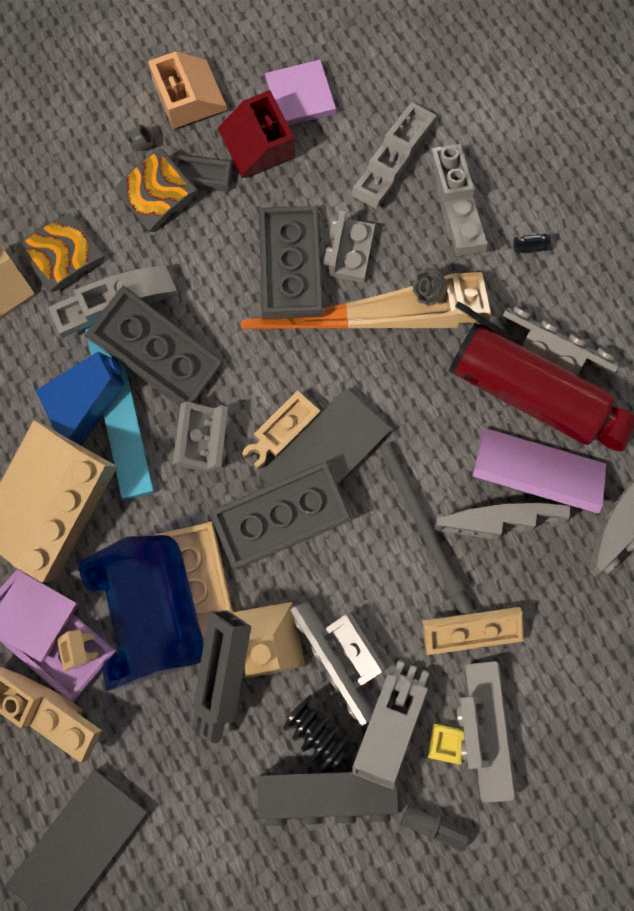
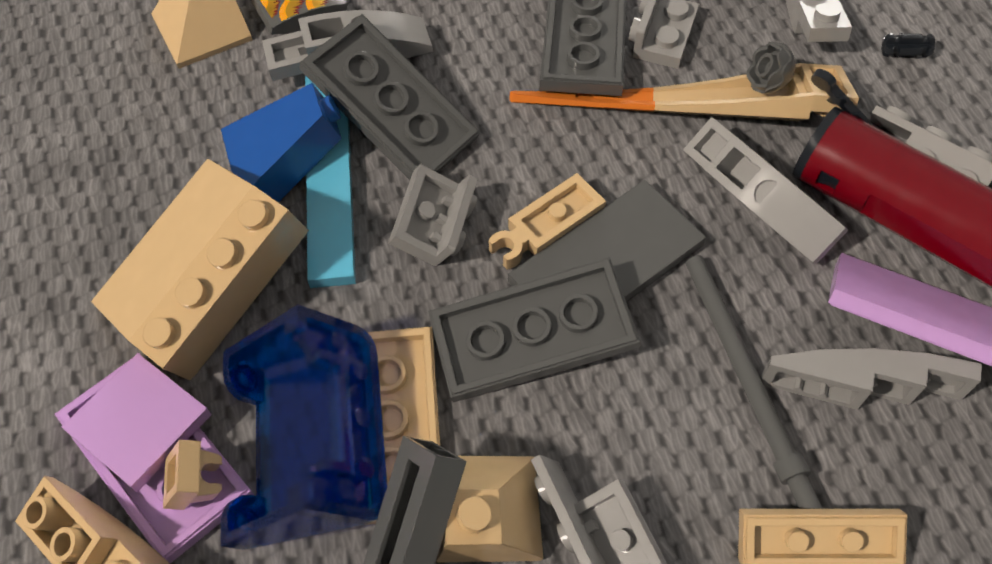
camera: 10 degrees right, 15 degrees down
(427, 389) = (765, 191): none -> light grey slope

